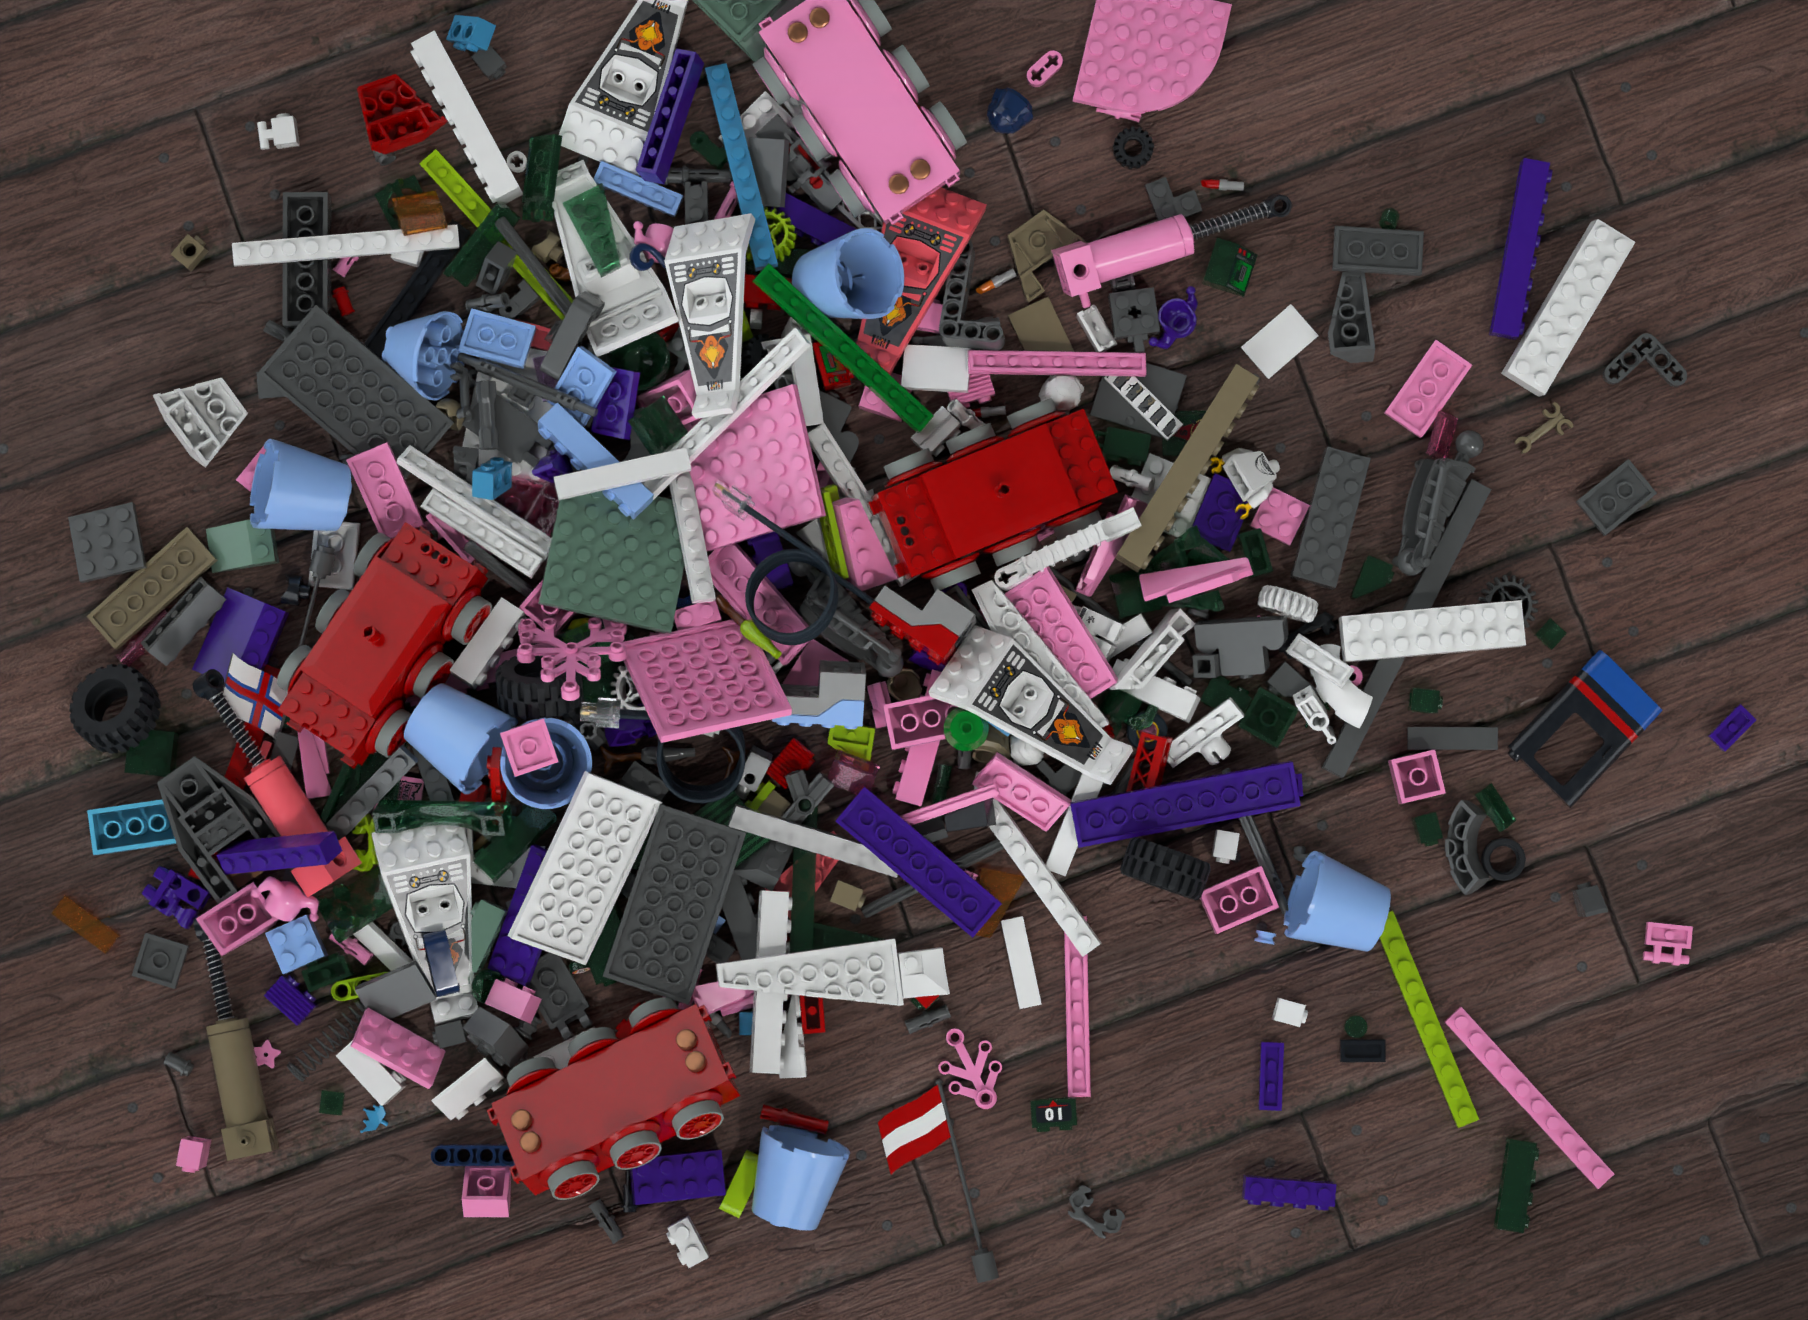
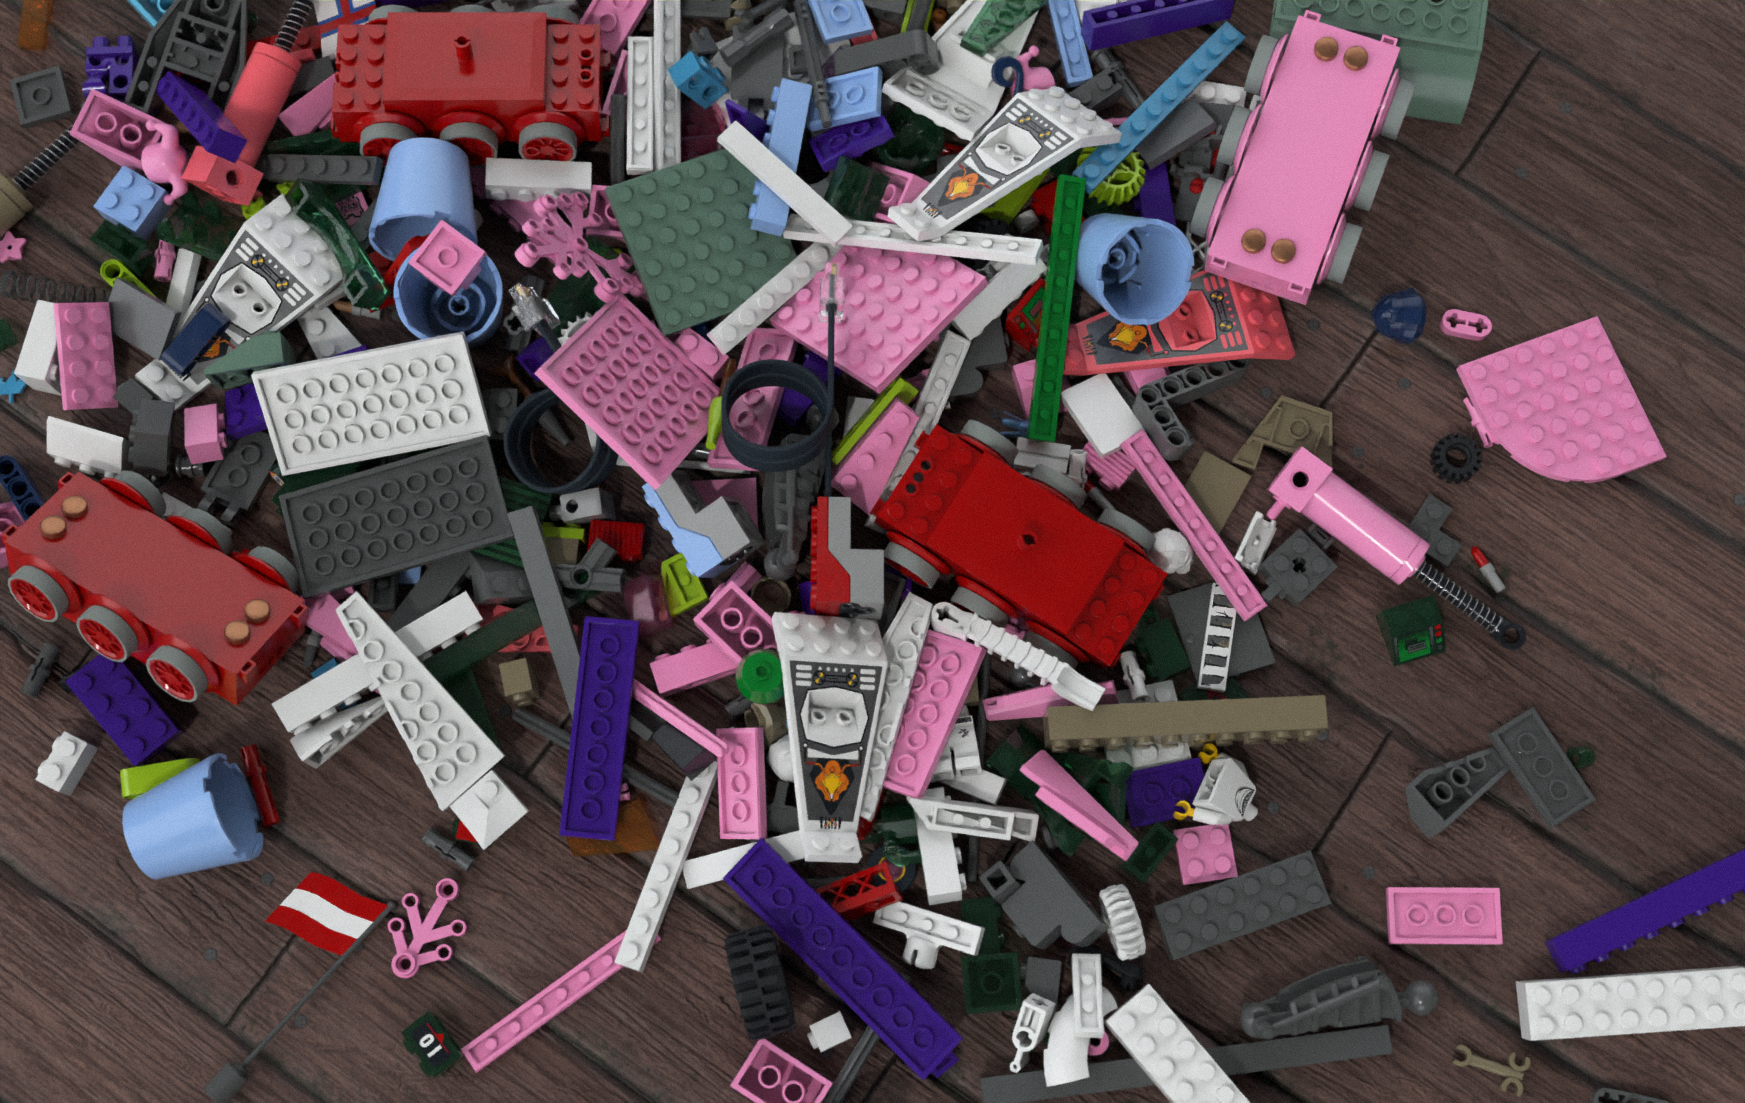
camera: 60 degrees right, 10 degrees down
(291, 999) = (74, 232): dark purple brick -> none
(483, 983) = (205, 394): clear green hair -> none
(507, 849) = (356, 328): clear green brick -> none
(527, 696) = (501, 234): black tyre -> none
(708, 150) = (1152, 71): clear green leg -> none
(812, 1014) = (375, 731): red brick -> none
(900, 433) = (1021, 426): none -> flat silver piece
(941, 783) = (698, 700): clear green axle -> none
(996, 281) = (1228, 418): light grey piece -> none
(1021, 962) = (569, 905): white tile -> none
(1176, 319) = (1322, 613): dark purple piece -> none
(1279, 341) = (1377, 733): white sticker -> none
(1372, 577) = (1212, 993): clear green slope -> none
(1442, 435) = (1409, 962): clear pink plate -> none

